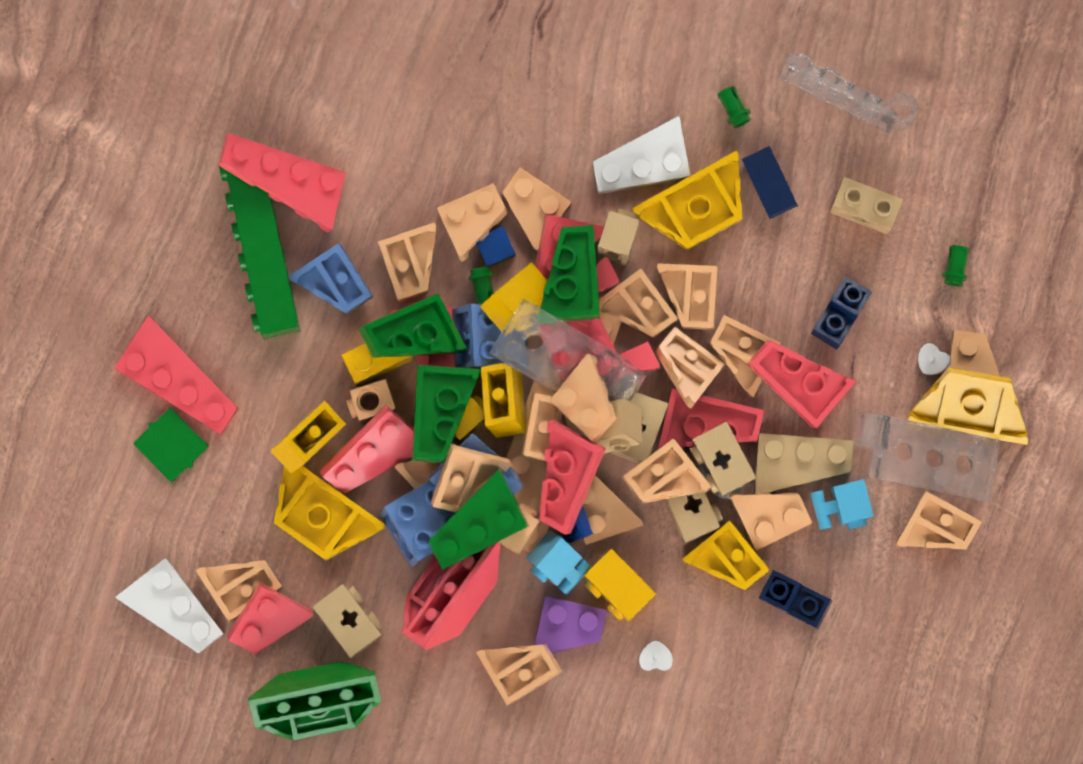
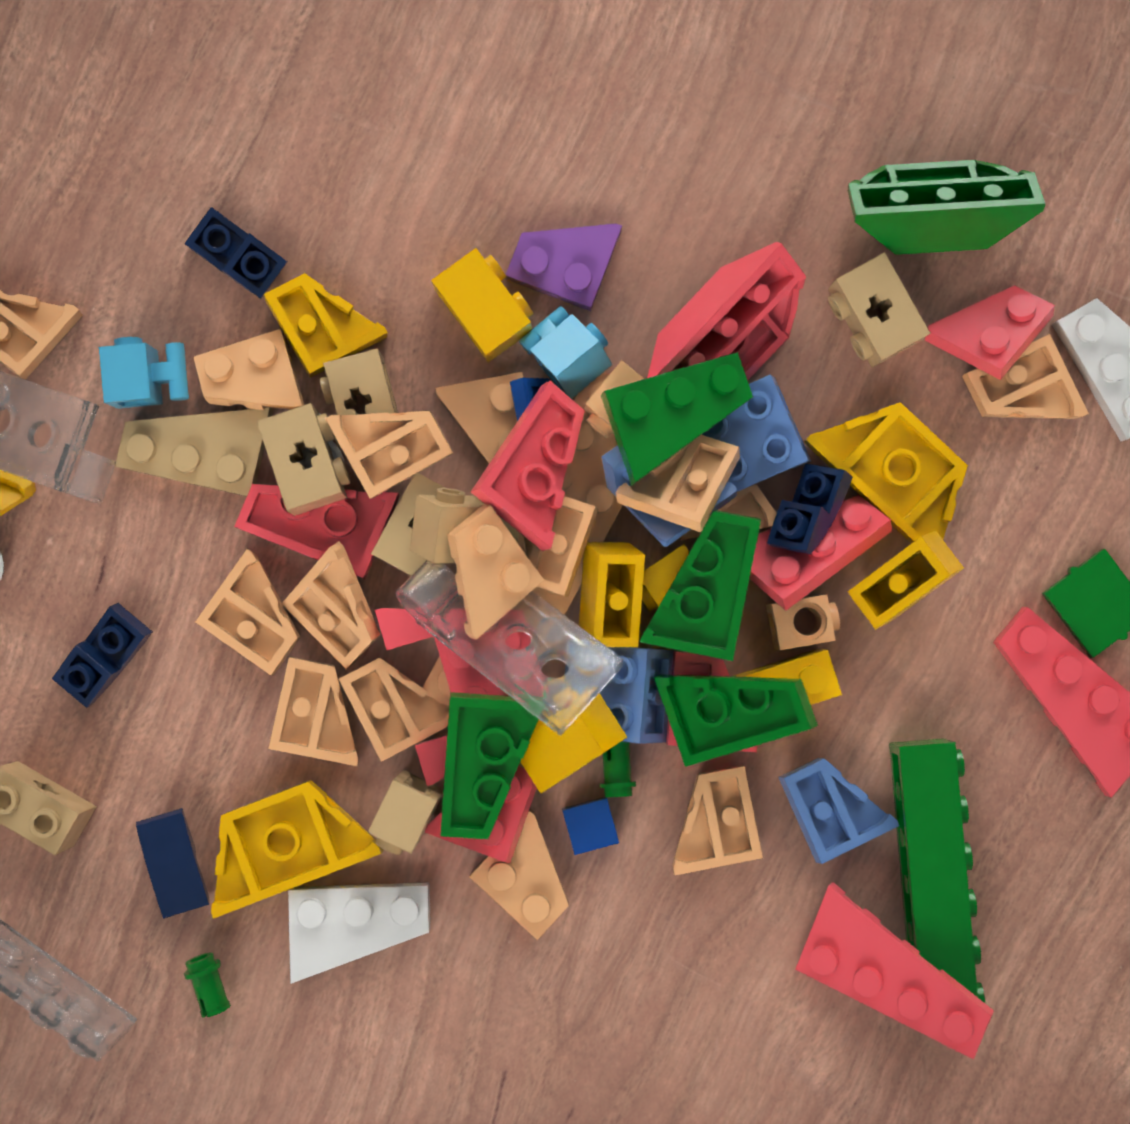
camera: 170 degrees left, 5 degrees up
(374, 479) = (815, 504): none -> dark blue slope
(472, 218) = (618, 873): light nougat wing -> none
(519, 669) = (643, 208): light nougat wing -> none
(655, 656) = (447, 203): white piece -> none
(802, 384) = (175, 559): coral wing -> none

